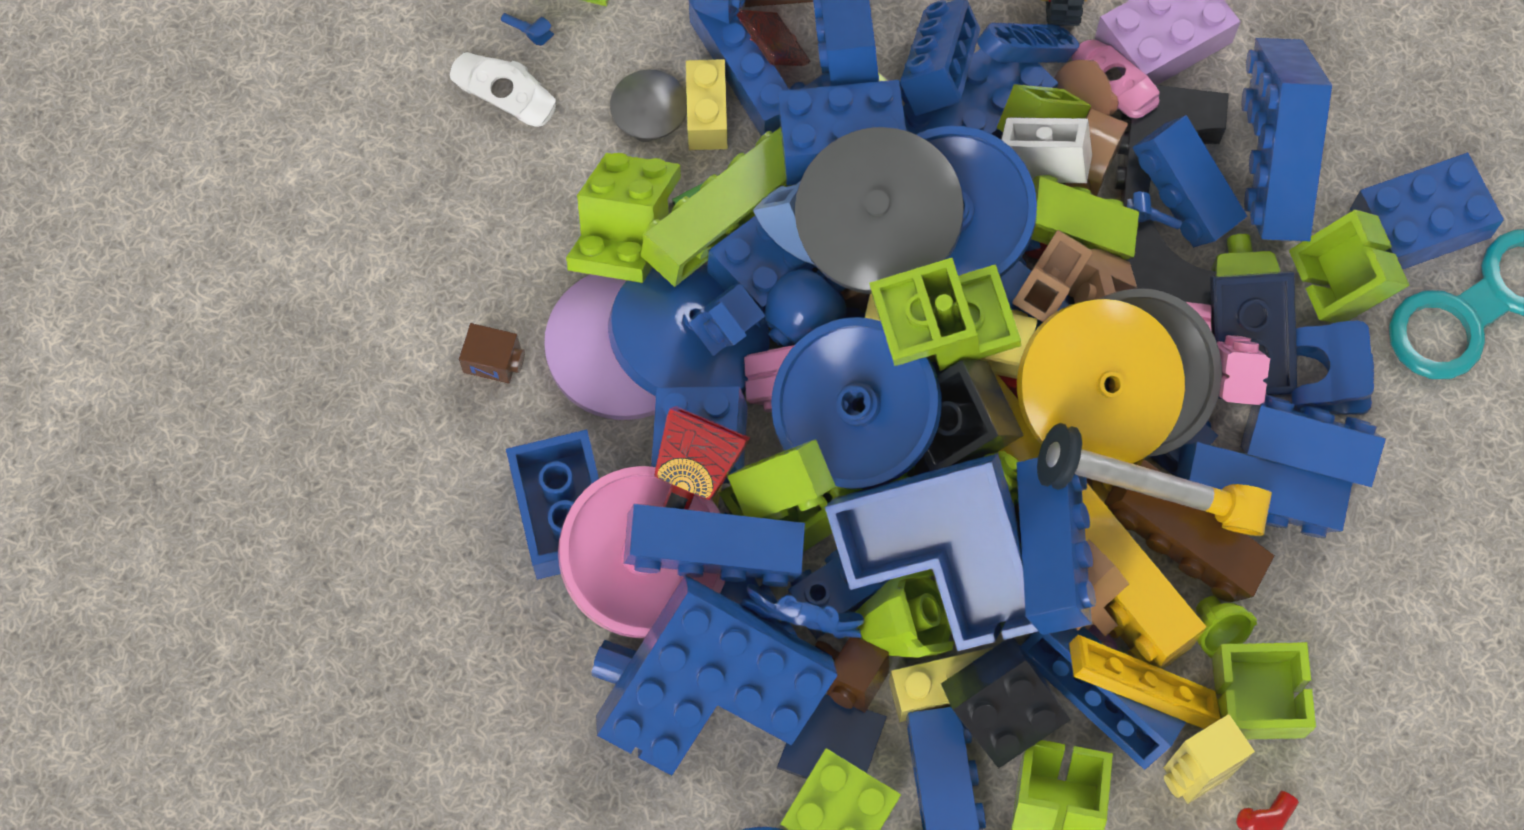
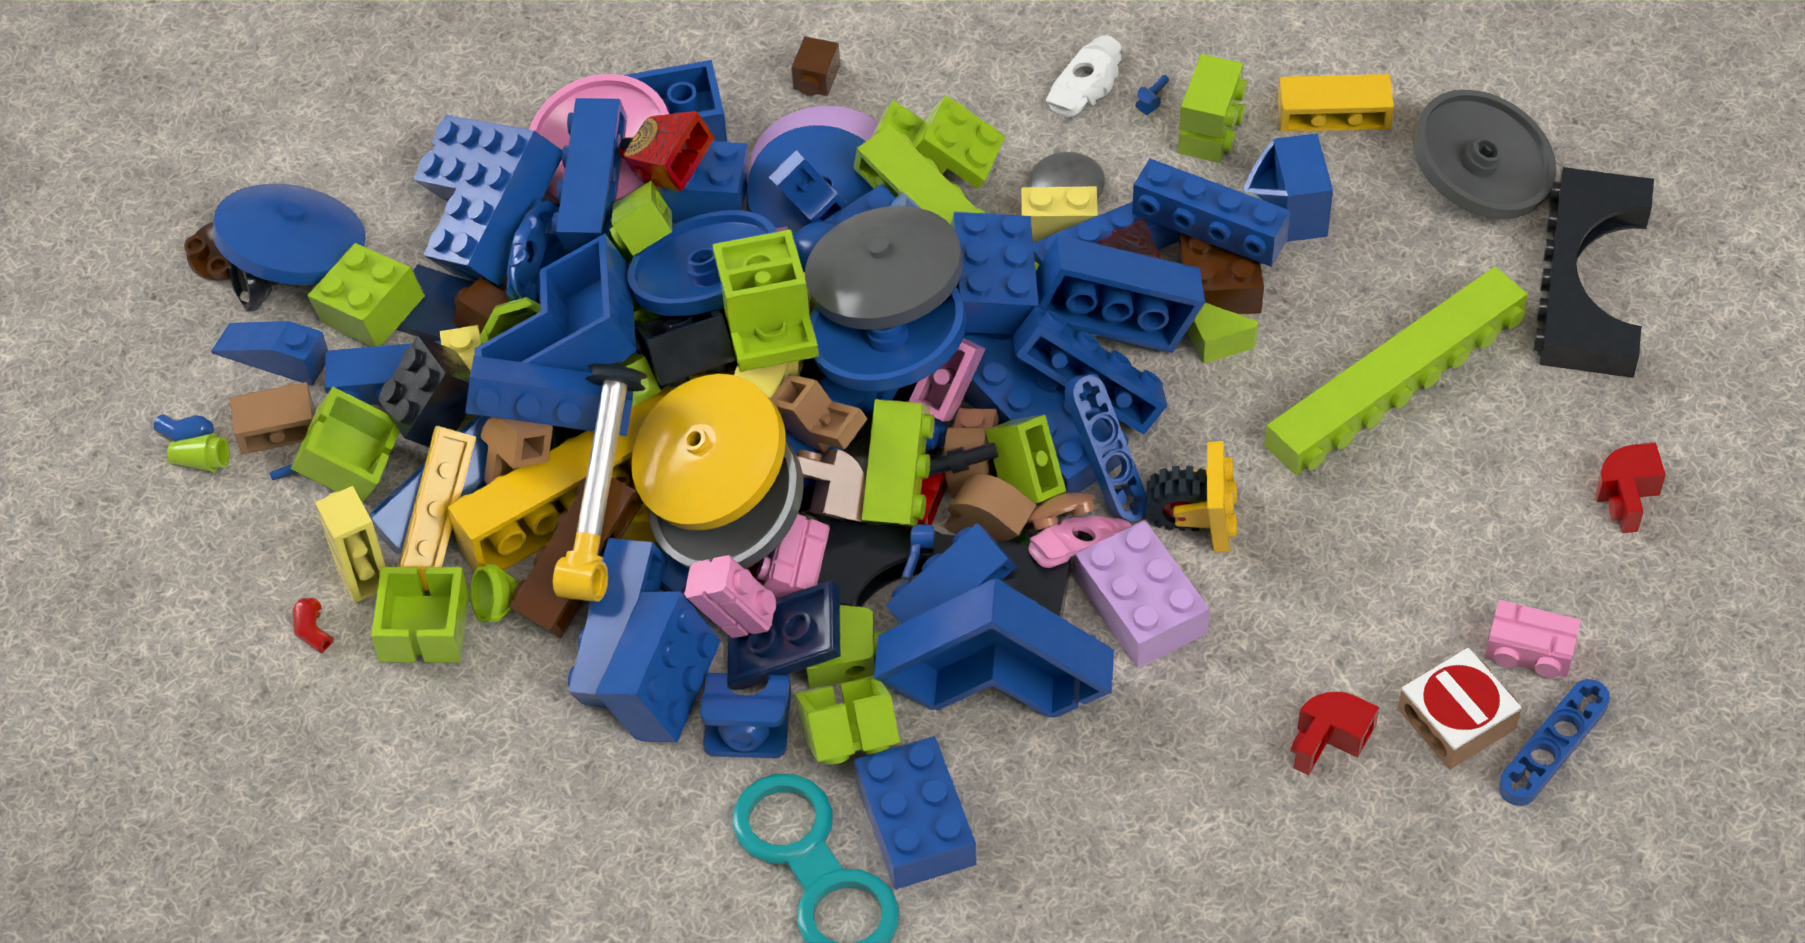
camera: 95 degrees right, 15 degrees down
(1052, 146) = (959, 423): white brick -> none

